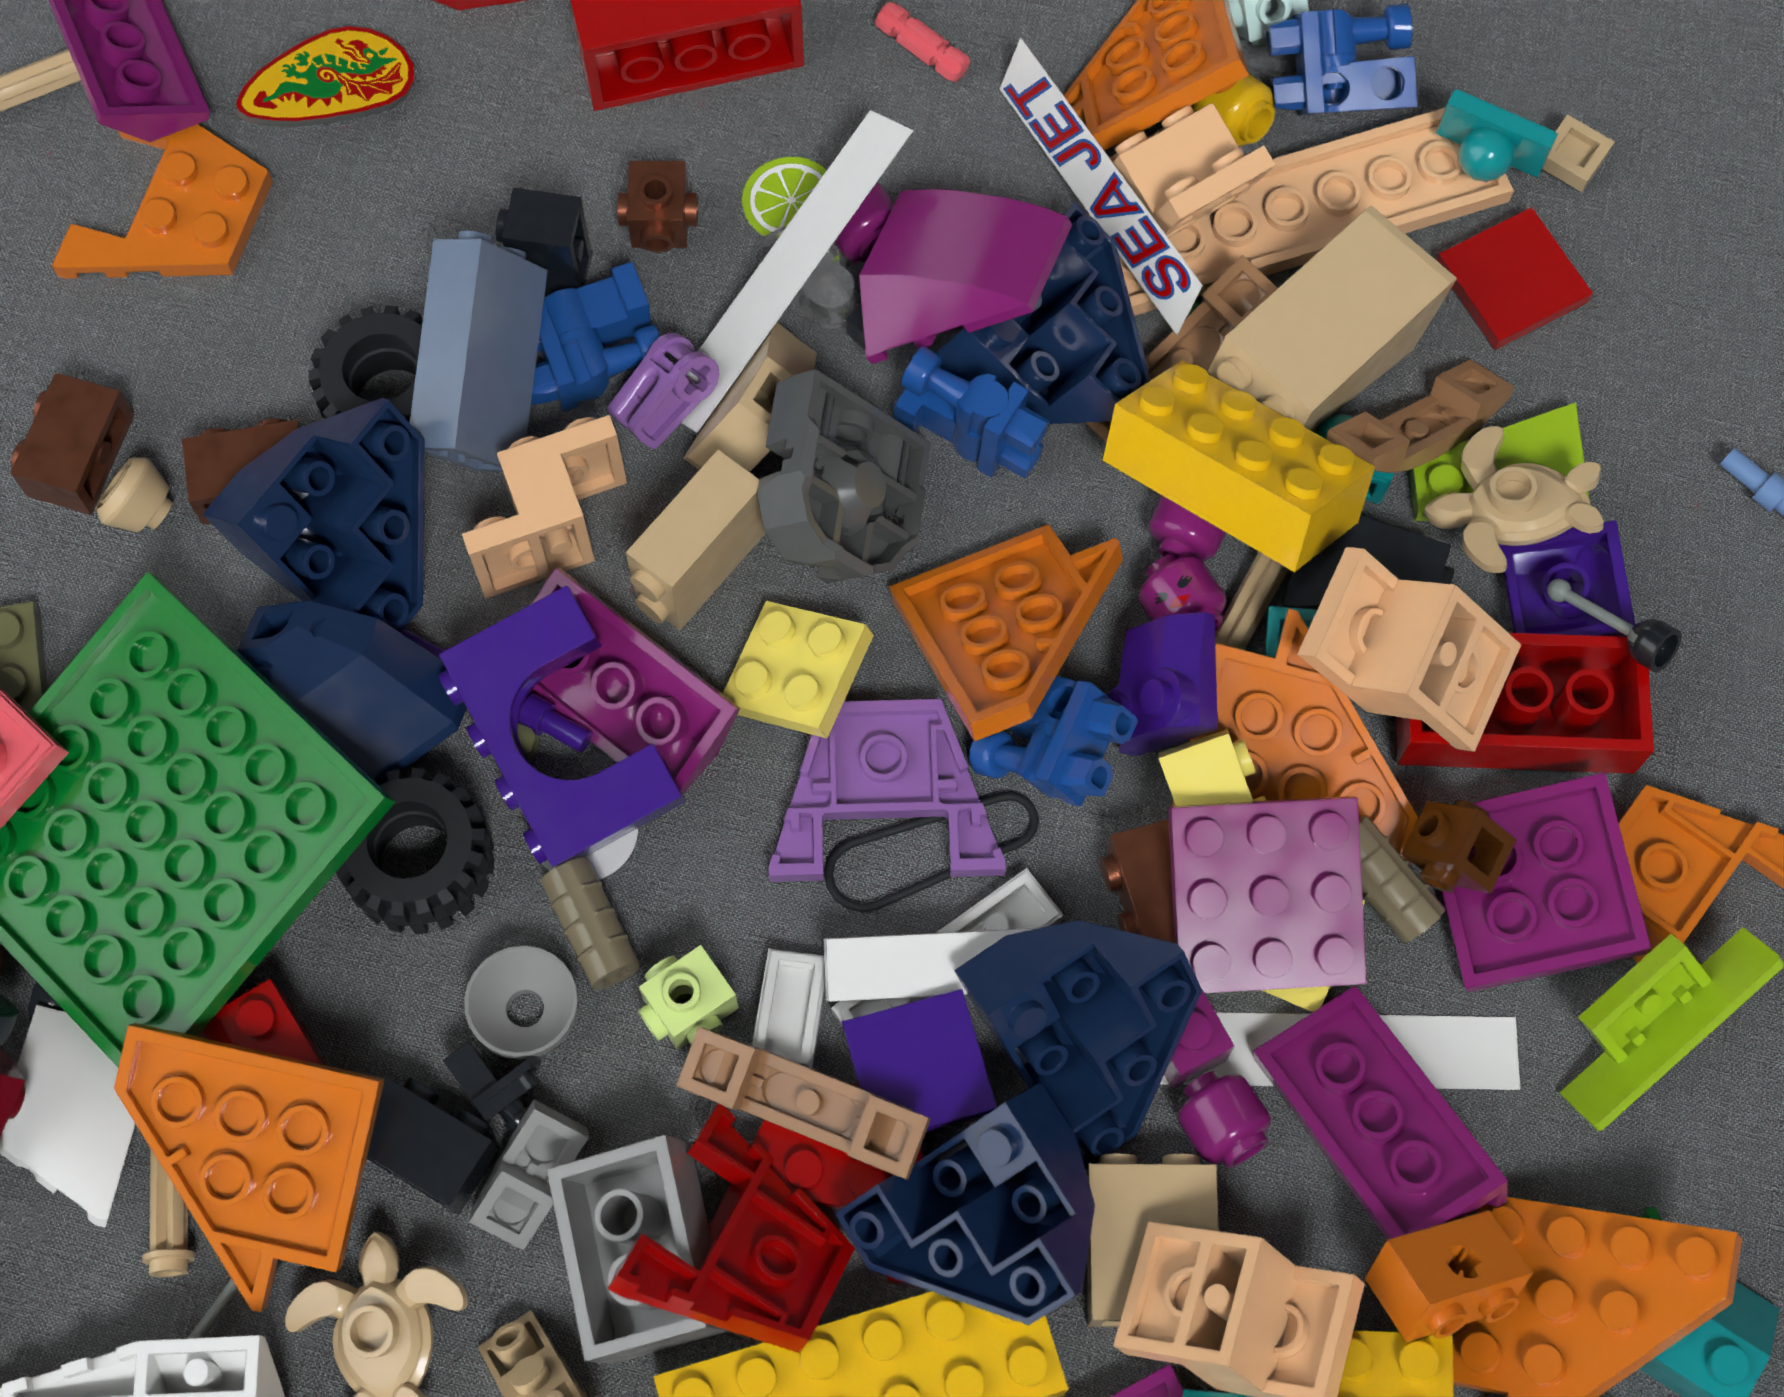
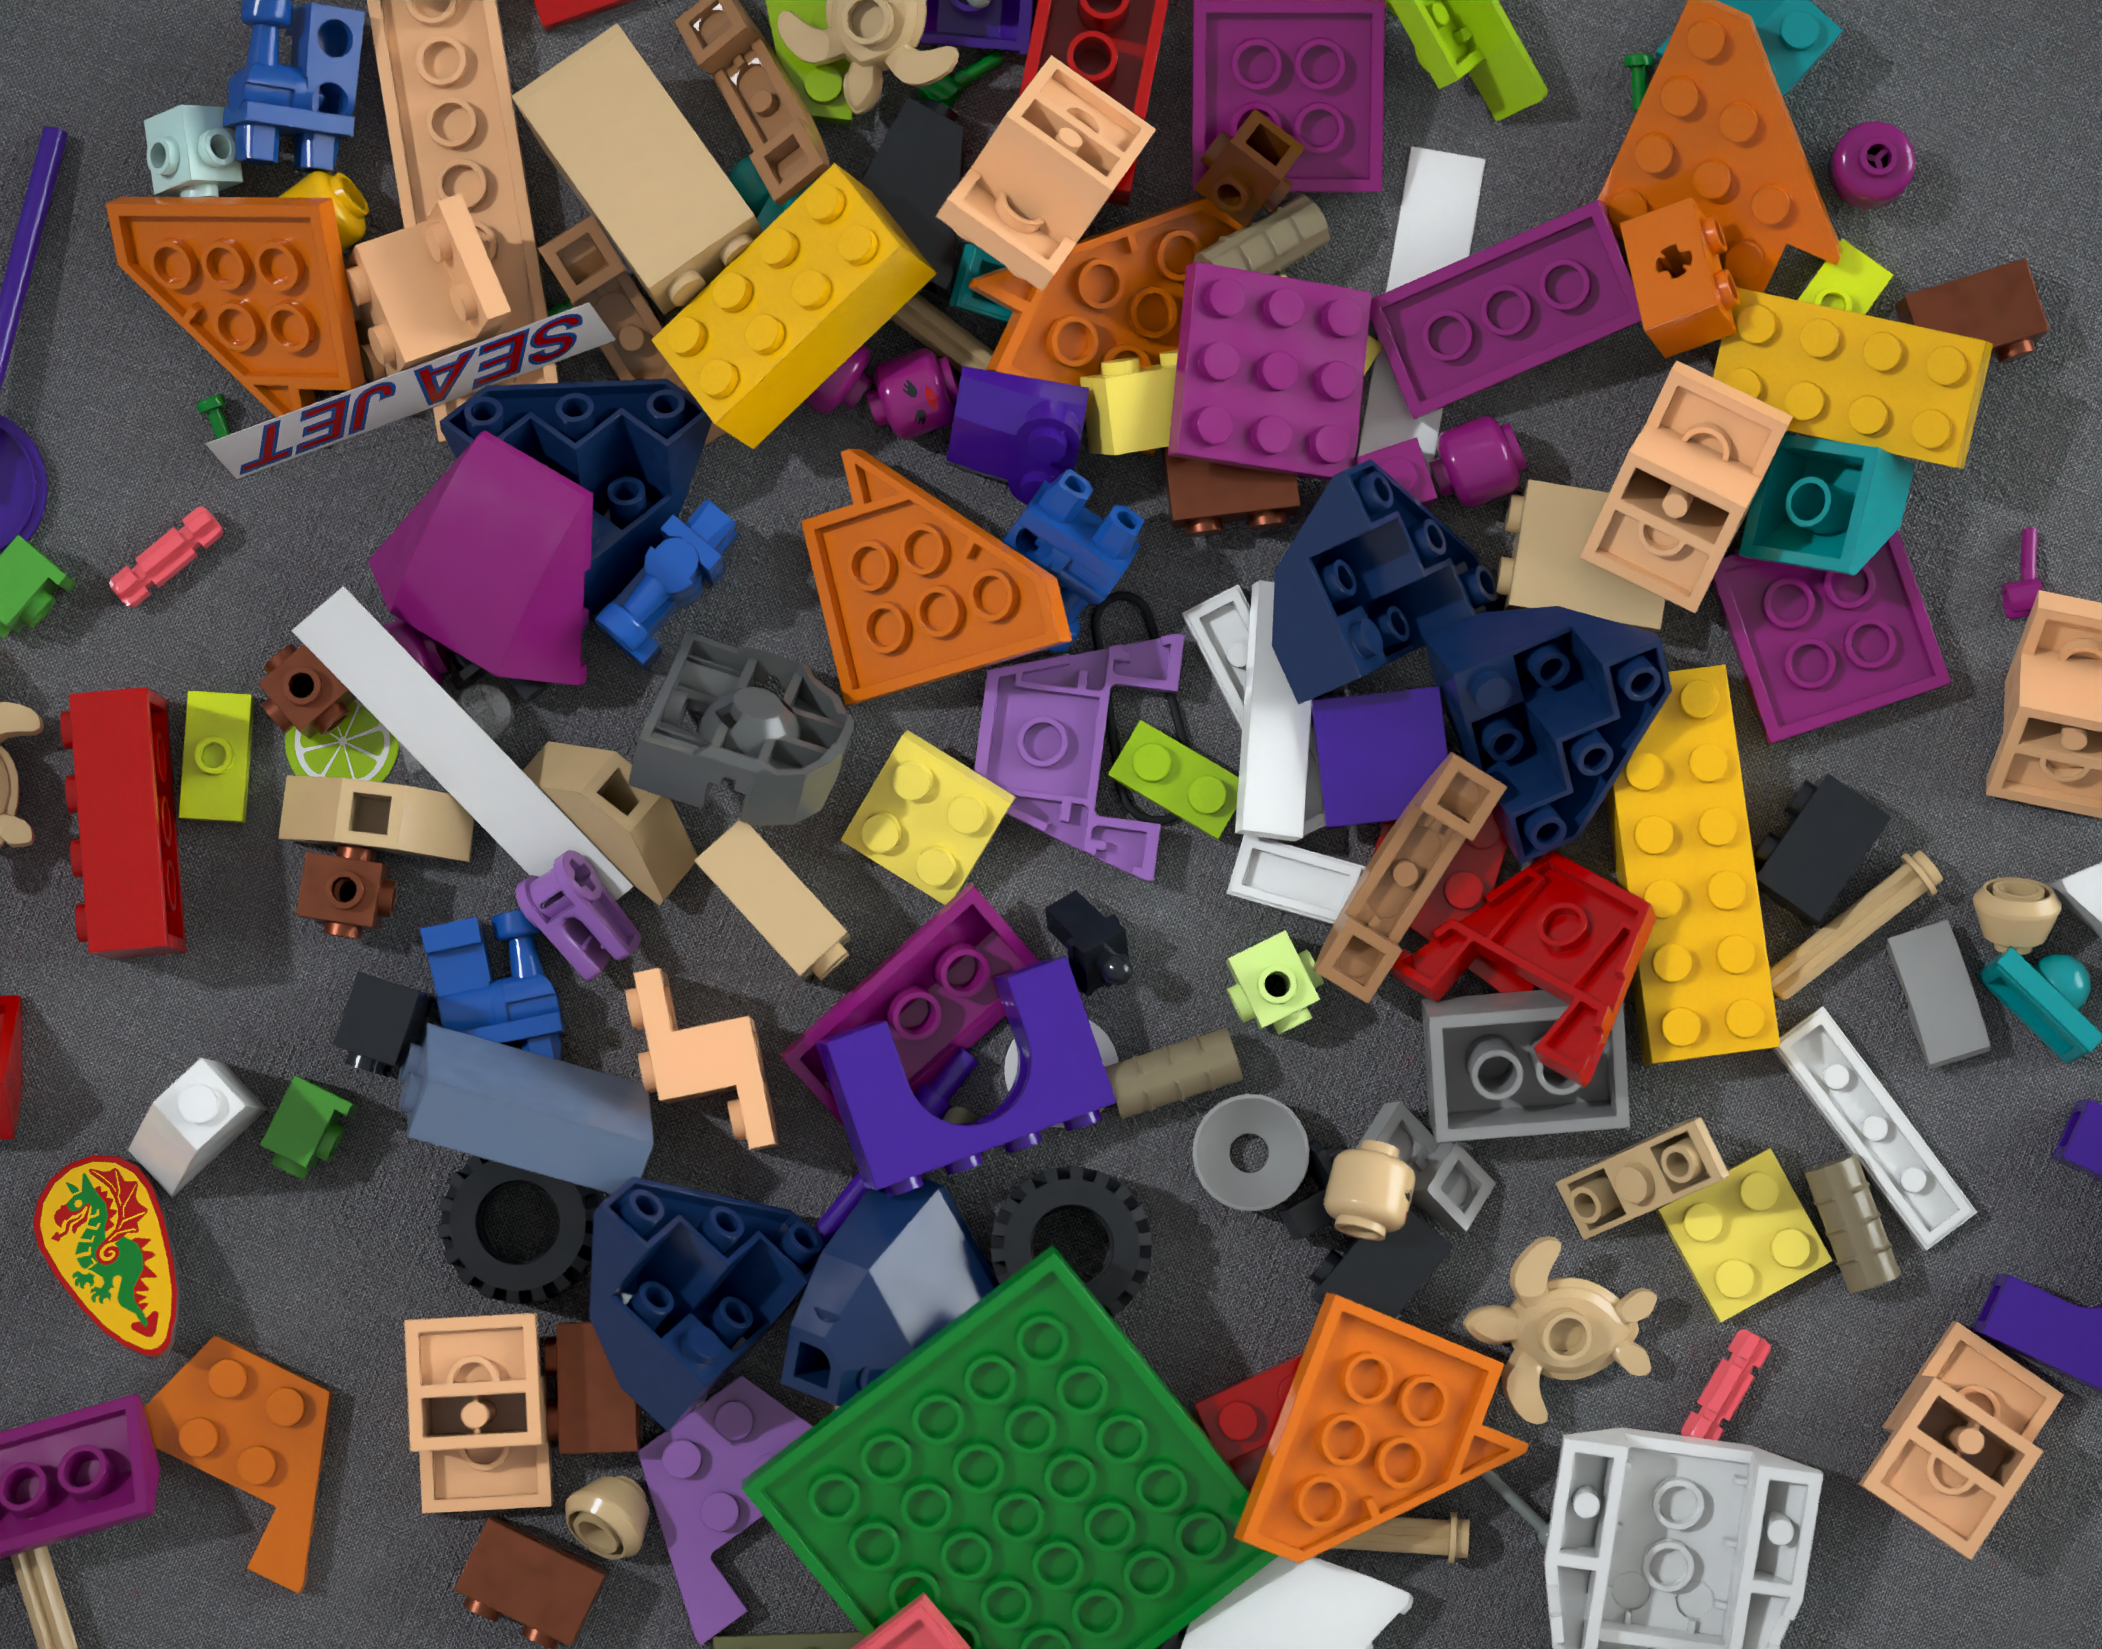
camera: 85 degrees left, 15 degrees up
(184, 557) = (699, 1493): none -> medium lavender wing
(214, 366) = (478, 1412): none -> light nougat bracket
(449, 120) = (193, 1123): none -> white slope
(452, 205) = (306, 1126): none -> bright green brick
(490, 1108) = (1369, 1191): none -> tan head
(700, 828) = (1094, 943): none -> black piece
(724, 227) = (376, 817): none -> tan slope
(761, 104) = (216, 756): none -> neon yellow plate
(816, 144) = (315, 713): none -> copper brick
(869, 883) = (1177, 780): none -> lime plate
(1055, 58) = (212, 406): none -> green piece
(1471, 580) = (950, 88): none -> green hand

